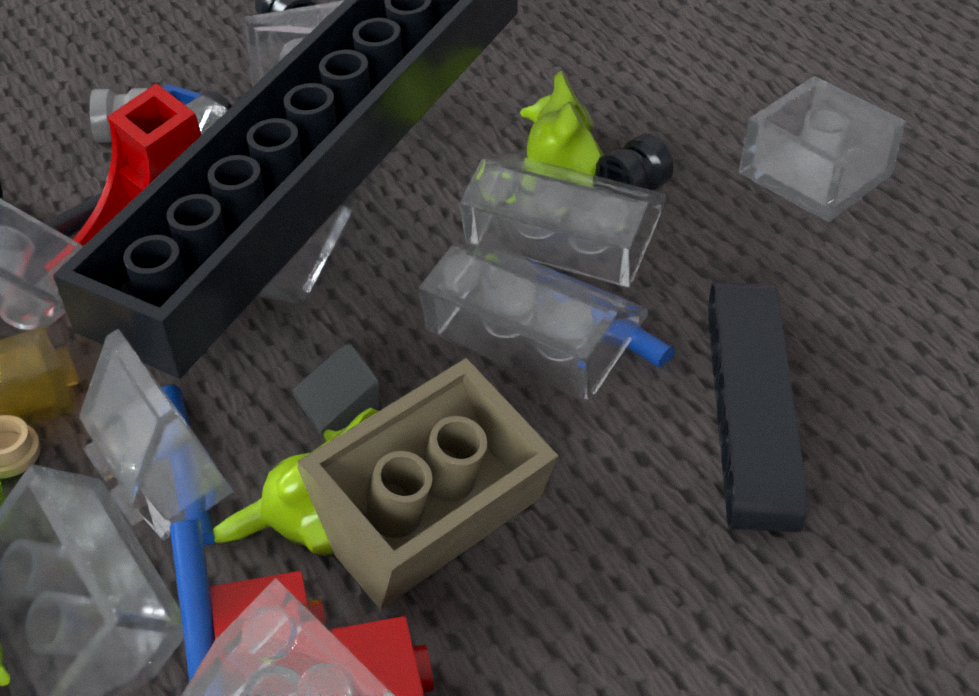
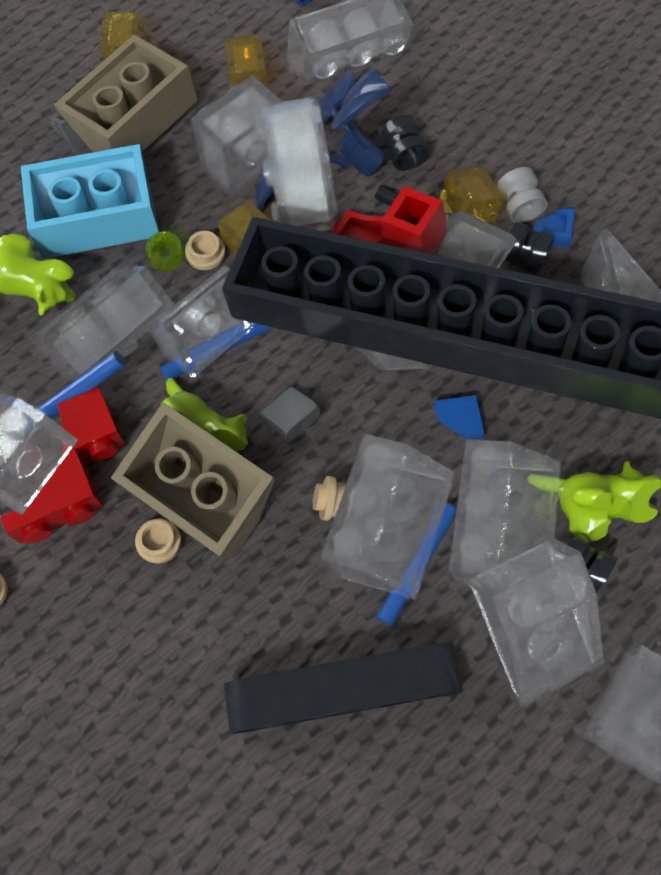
camera: 80 degrees right, 25 degrees up
(86, 152) = (473, 193): none -> clear yellow brick
(408, 234) = (460, 416): none -> blue tile
(492, 577) = (158, 541): none -> tan plate
(493, 360) = (328, 497): none -> tan plate
(691, 182) = (542, 618): none -> clear slope

